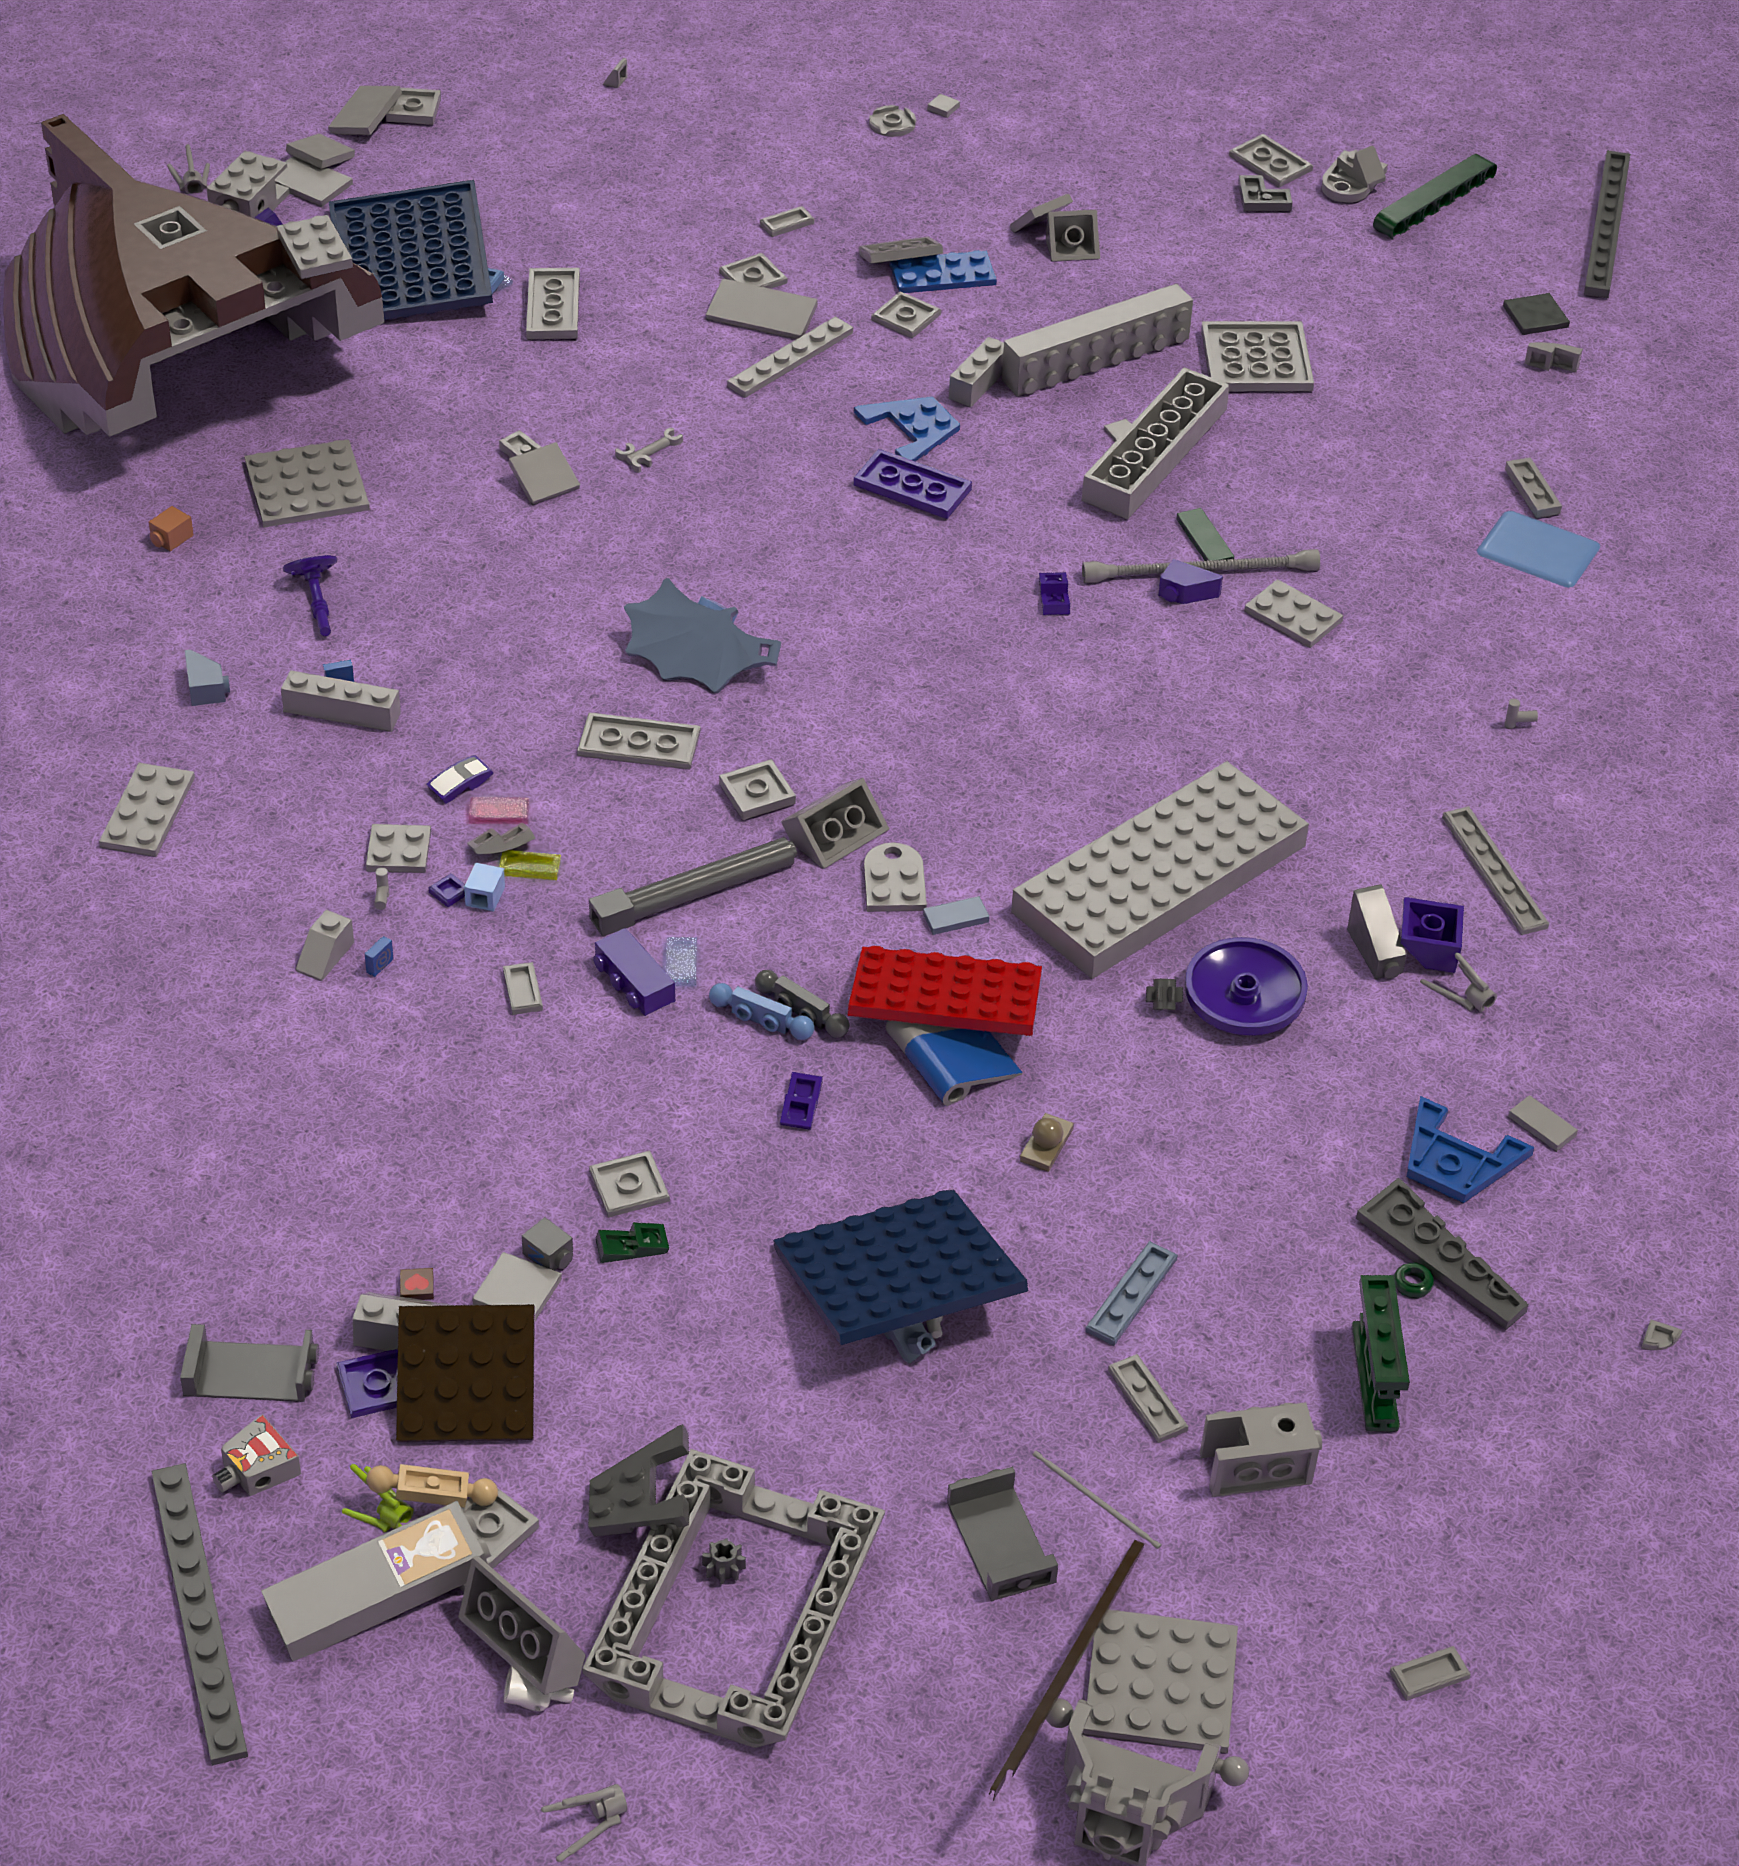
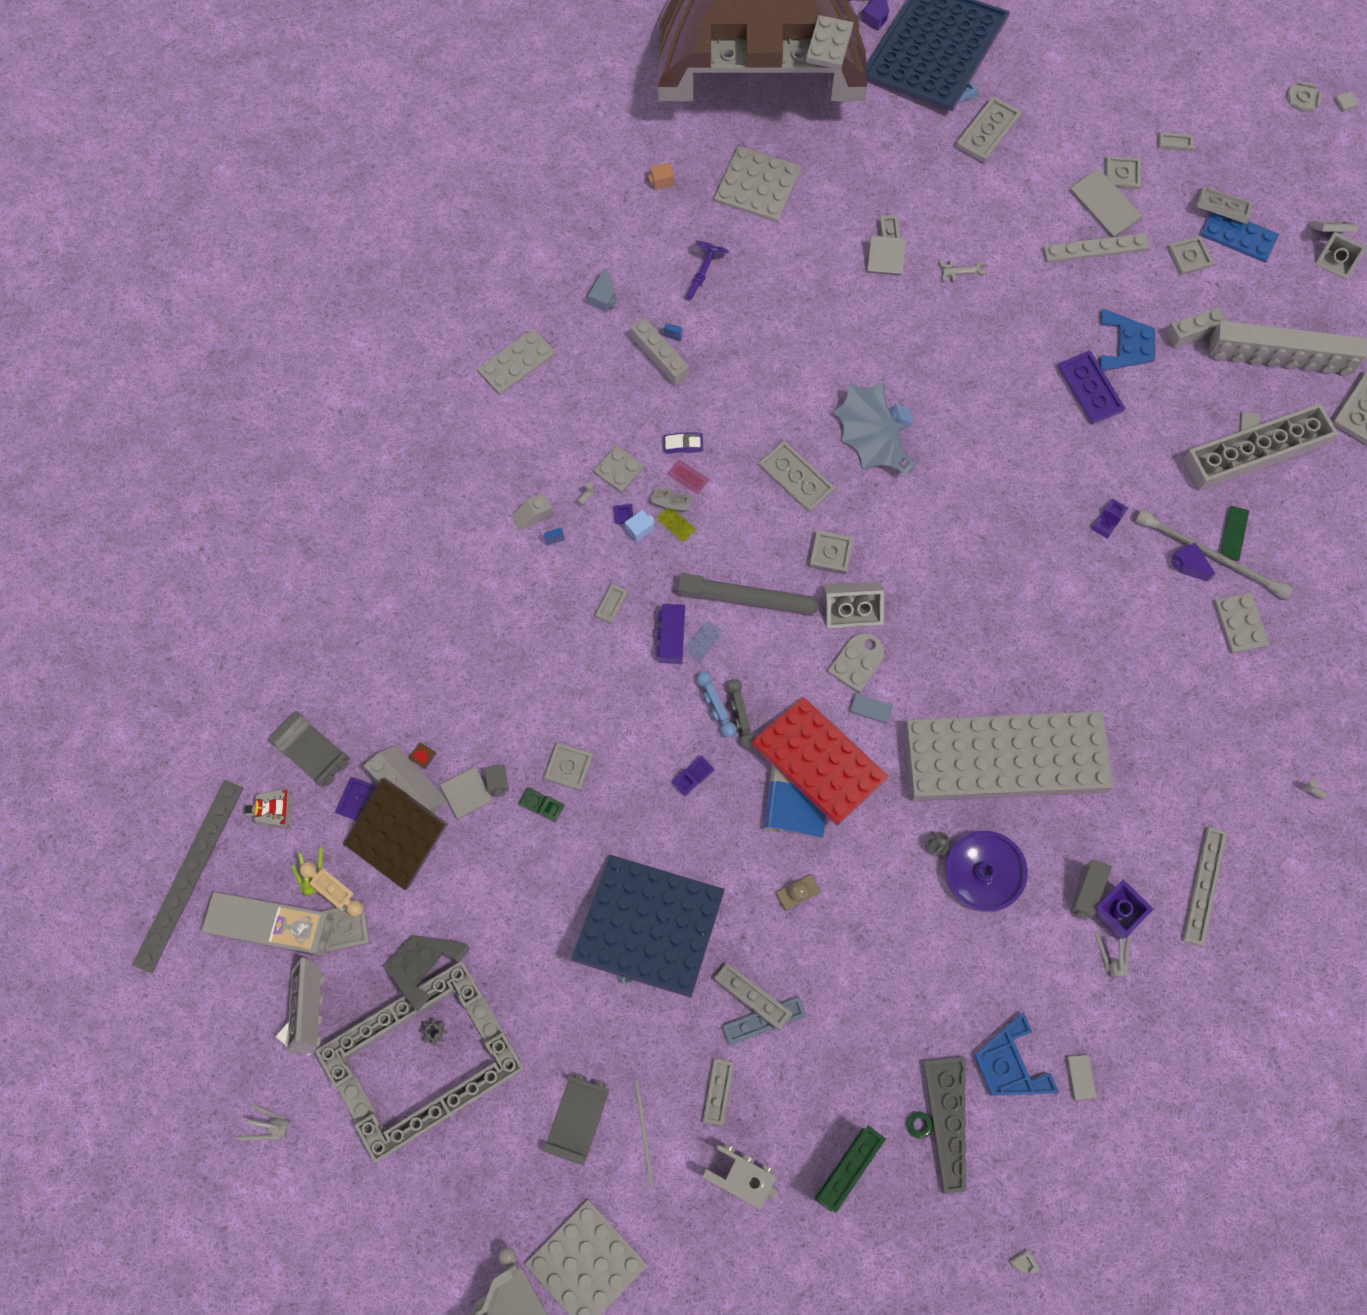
camera: 40 degrees right, 25 degrees up
(1068, 1666) = (539, 1231): dark brown piece -> none
(1095, 1269) = (753, 996): none -> light grey plate

